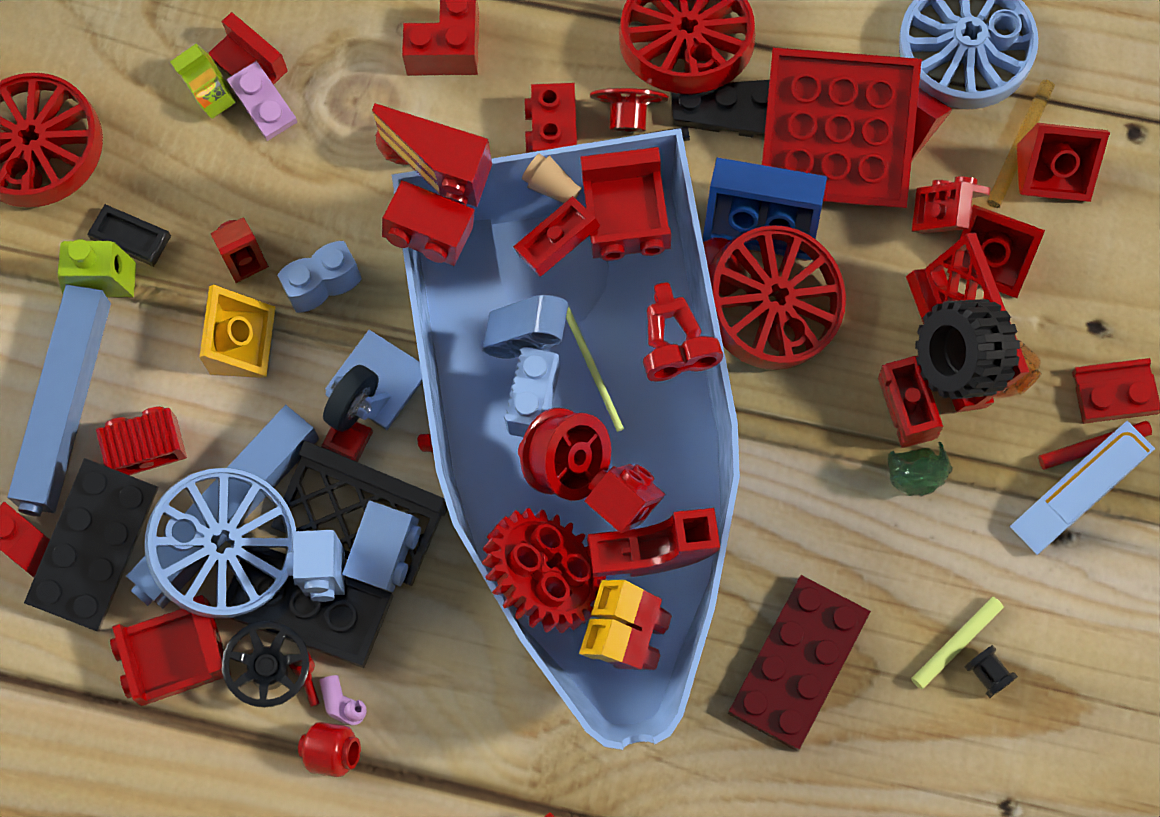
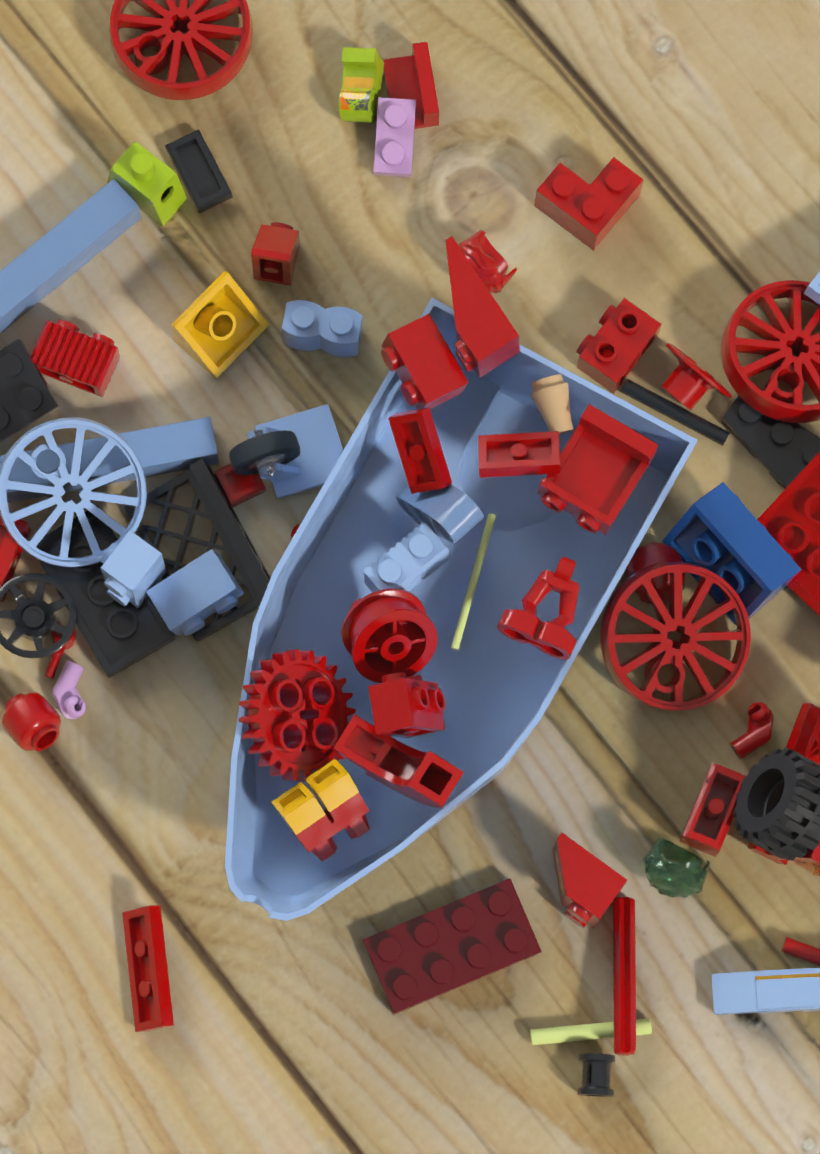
camera: 30 degrees right, 5 degrees up
(477, 291) = (420, 450): none -> red plate
(861, 530) = (584, 882): none -> red slope
(889, 321) = (758, 730): none -> red arm
(949, 580) = (624, 976): none -> red axle

